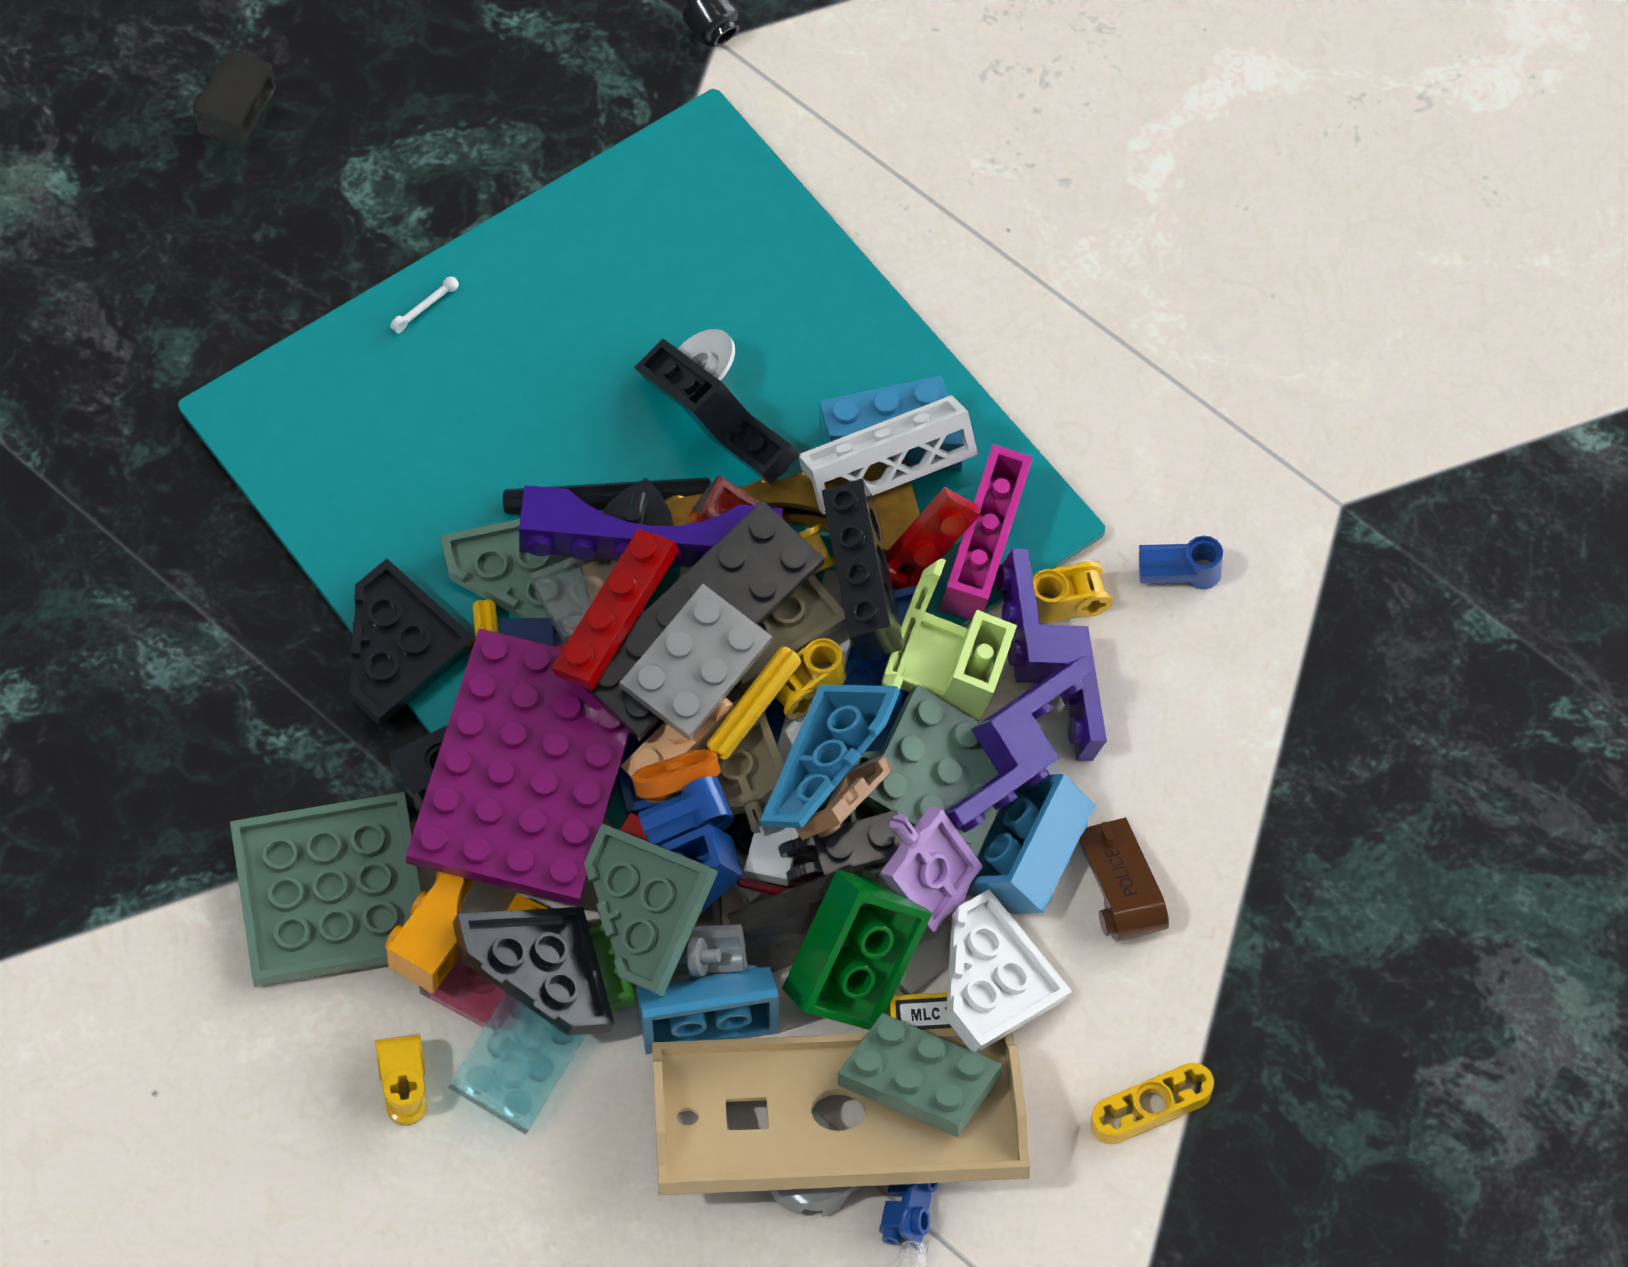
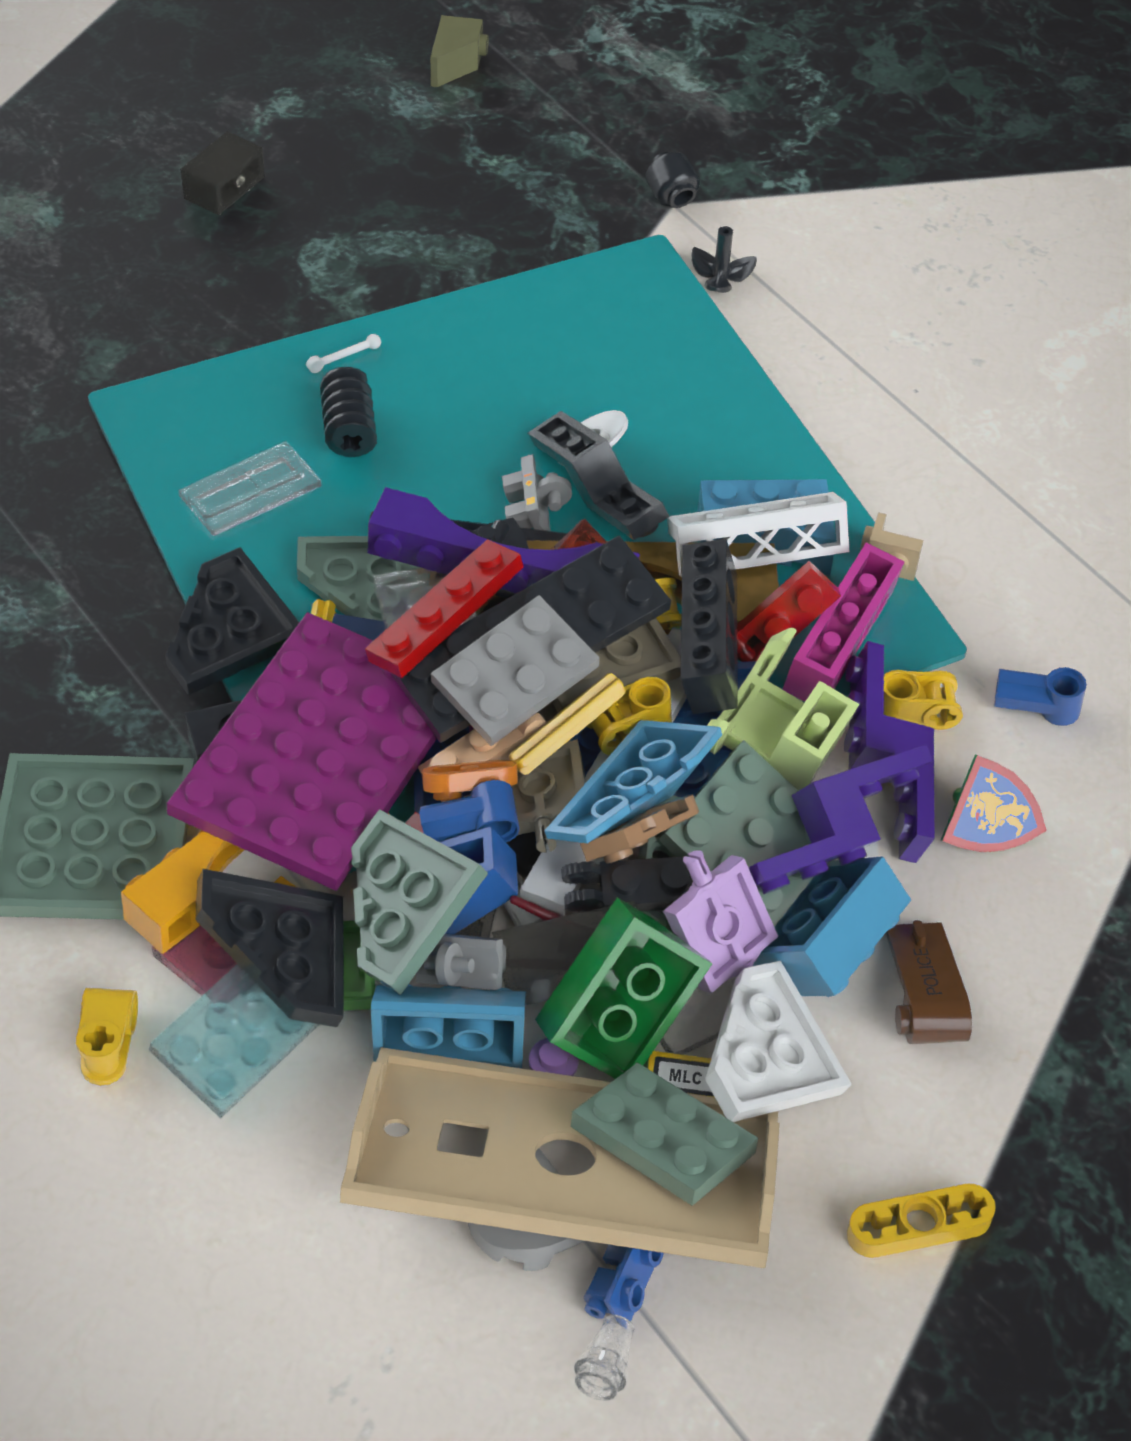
camera: 10 degrees right, 10 degrees down
(373, 483) = (249, 488): none -> clear piece
(451, 381) = (348, 412): none -> black piece
(651, 430) = (538, 495): none -> light grey hips
(784, 116) = (720, 266): none -> black plant
(802, 1023) = (552, 1059): none -> medium lavender plate
(1016, 436) = (898, 545): none -> tan bracket
(1155, 699) = (992, 810): none -> shield

